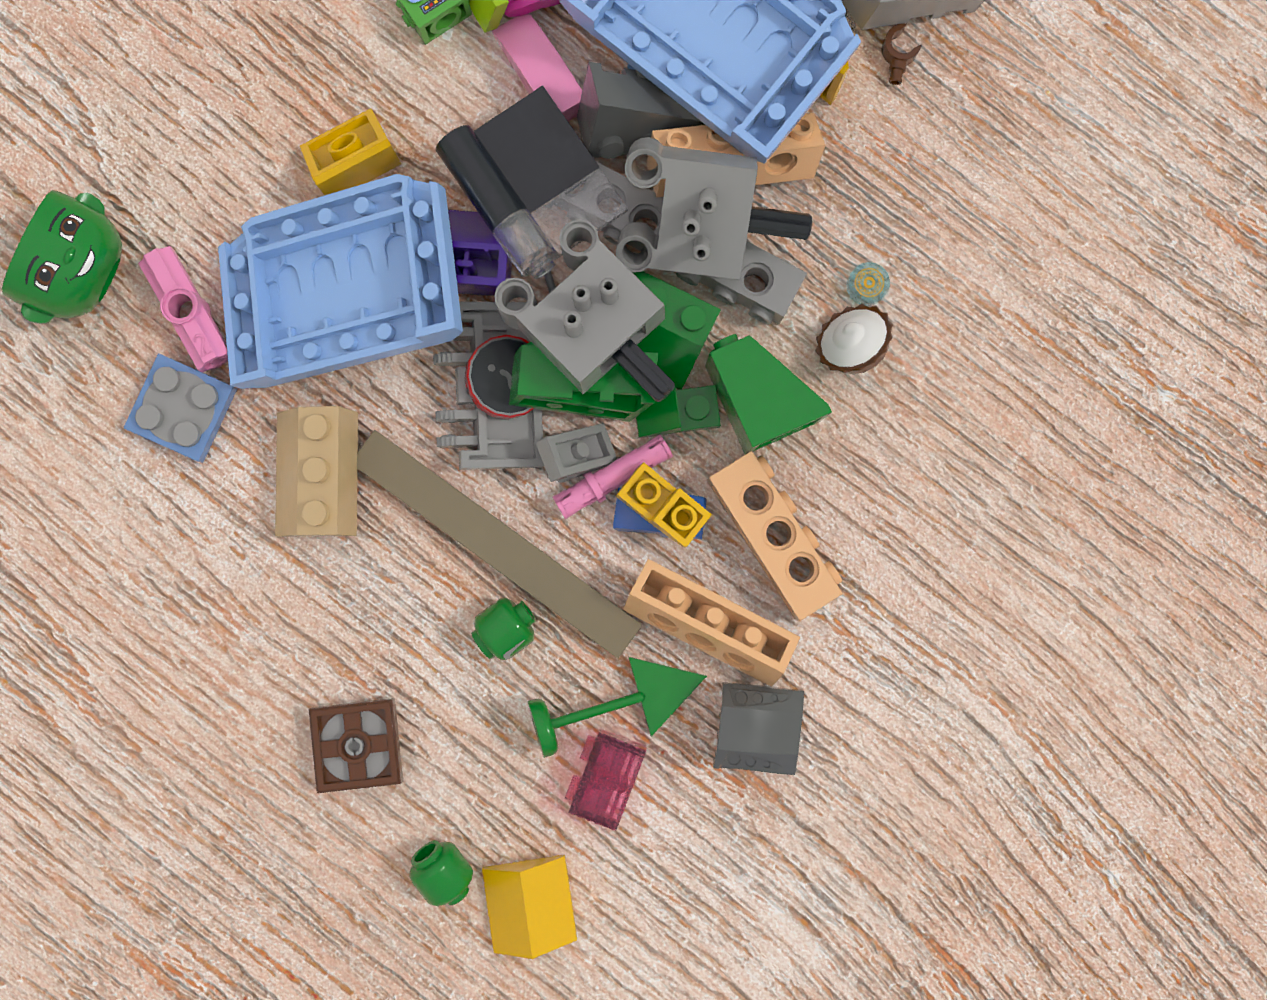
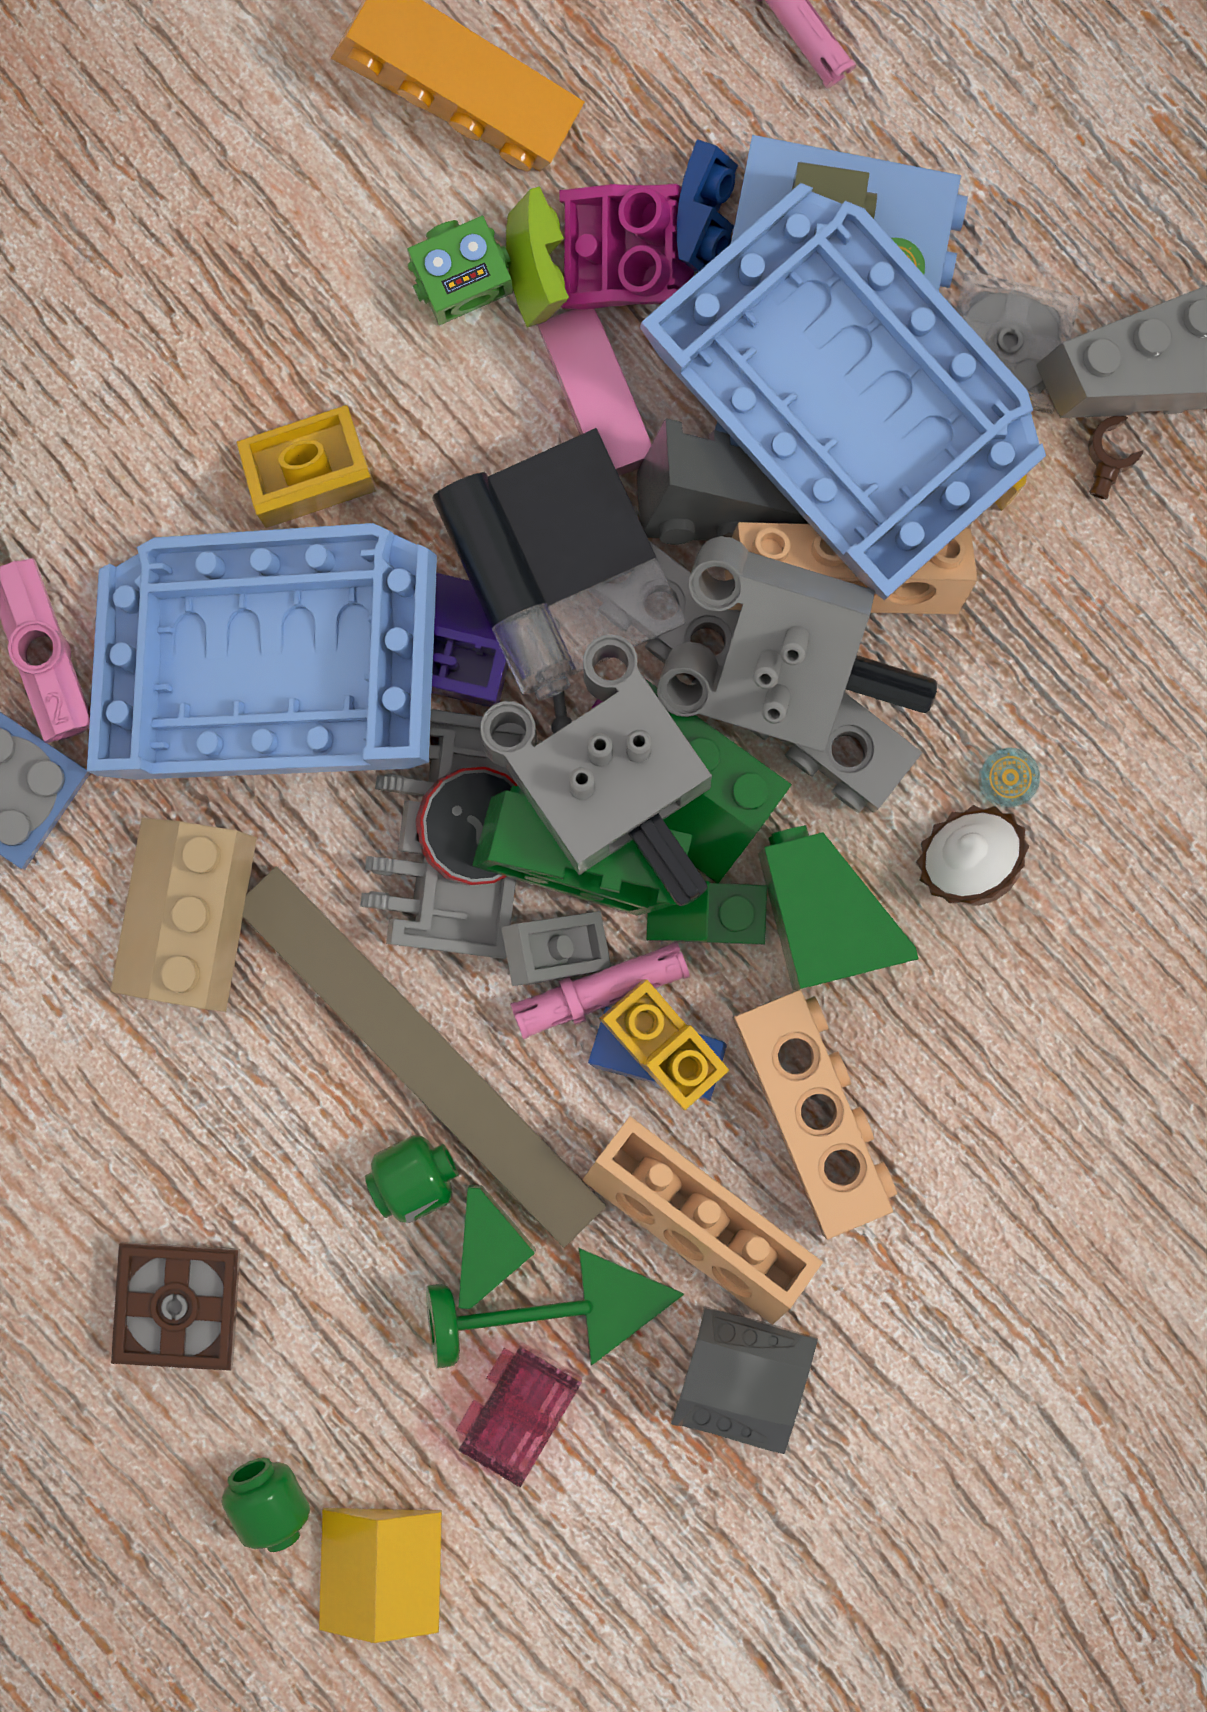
camera: 10 degrees right, 0 degrees up
(566, 666) = (490, 1247): none -> green slope

